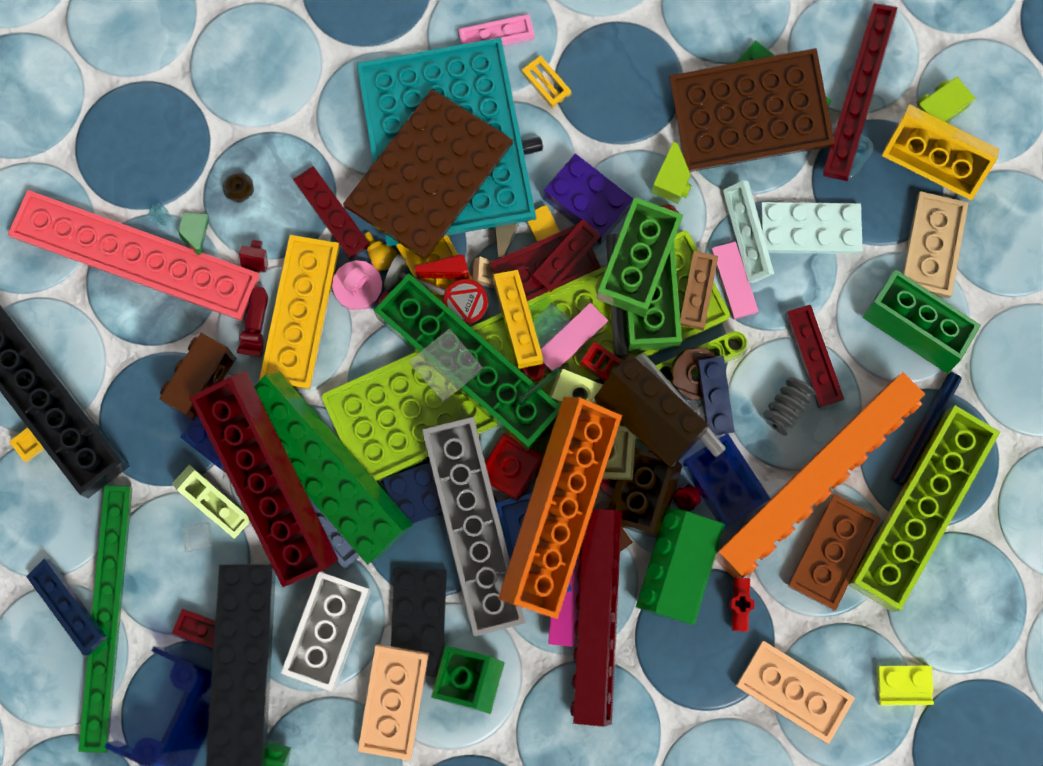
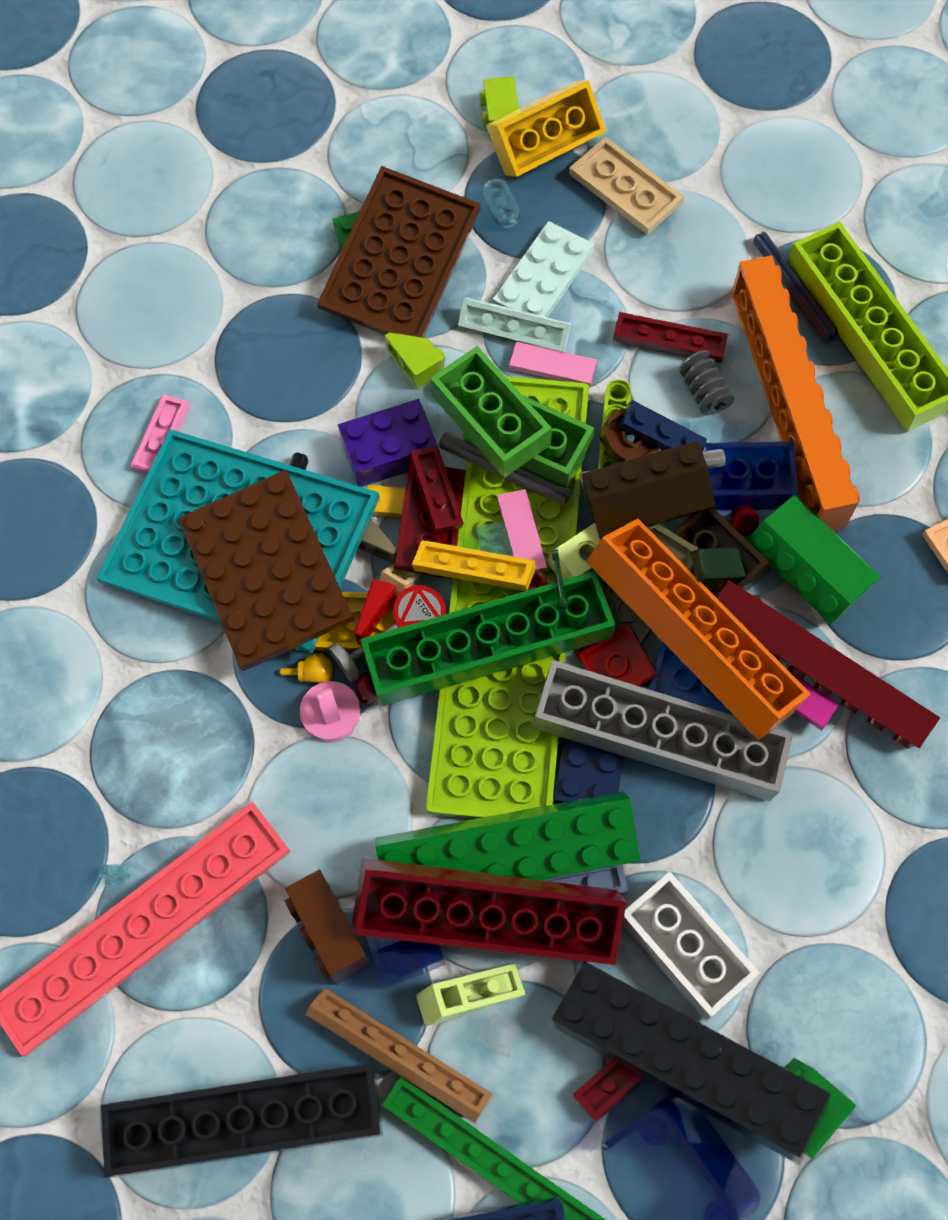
camera: 55 degrees left, 10 degrees down
(26, 445) = (278, 1170): yellow plate -> none
(144, 477) = (399, 1054): none -> medium nougat plate
(193, 230) = (158, 844): tile -> none
(238, 194) = (144, 782): dark brown plate -> none
(251, 339) = (316, 850): dark red piece -> none
(254, 257) = (231, 796): dark red tile -> none
(300, 310) = (320, 782): yellow plate -> none
(331, 212) = (234, 694): dark red plate -> none
(393, 702) = (802, 918): light nougat plate -> none
(420, 613) = (726, 849): black plate -> none
(446, 365) = (482, 654): clear plate -> none
(468, 679) = (816, 829): green slope -> none
(566, 92) = (242, 422): yellow tile -> none
(604, 354) = (559, 510): red slope -> none
(623, 495) = (717, 564): none -> clear green tile
(698, 290) = (542, 388): medium nougat plate -> none
(741, 589) = (869, 524): red axle -> none
(834, 552) = (872, 425): dark orange plate -> none
(860, 92) = (444, 161): dark red plate -> none
(922, 321) = (694, 231): green slope -> none

